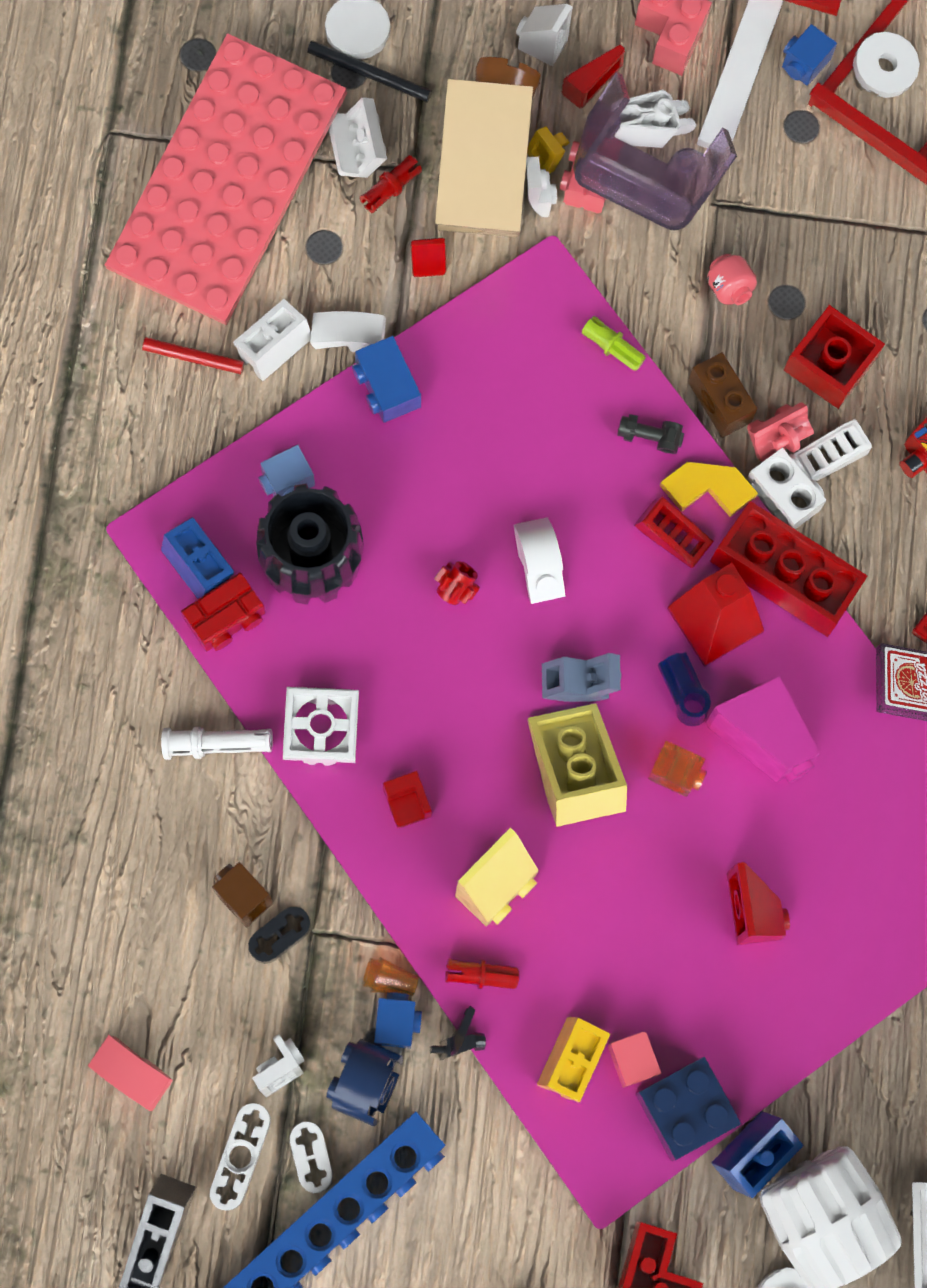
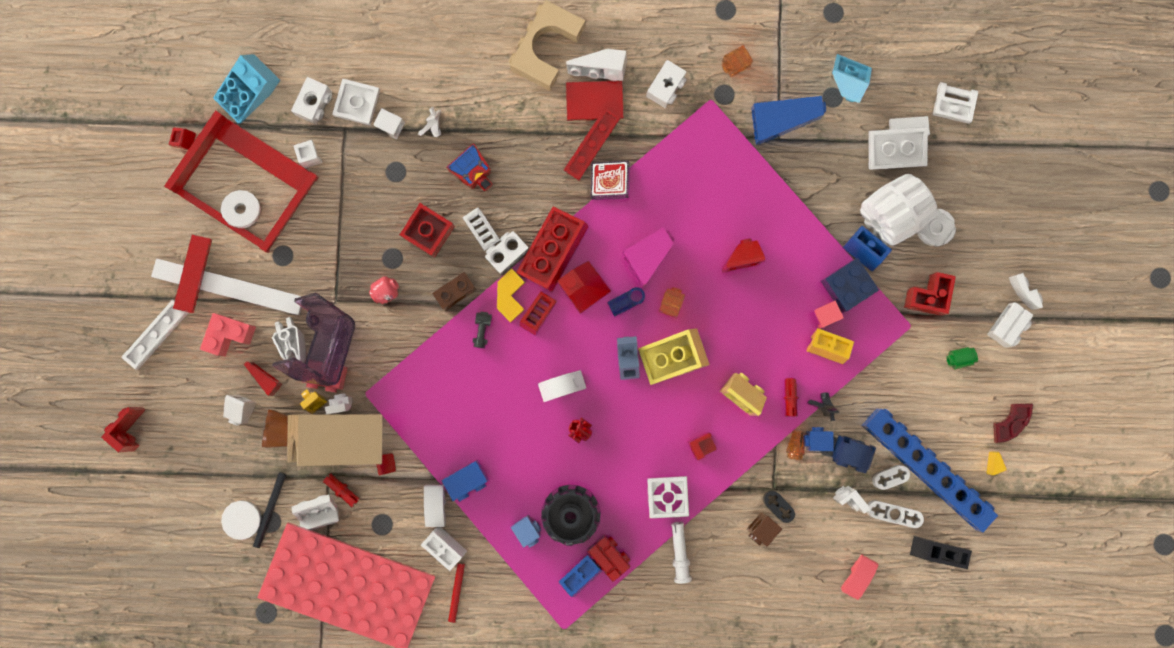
camera: 90 degrees left, 10 degrees up
(613, 343) = (430, 354): lime axle -> none
(783, 430) = (474, 257): coral hips -> none
(808, 54) = (239, 254): blue brick -> none

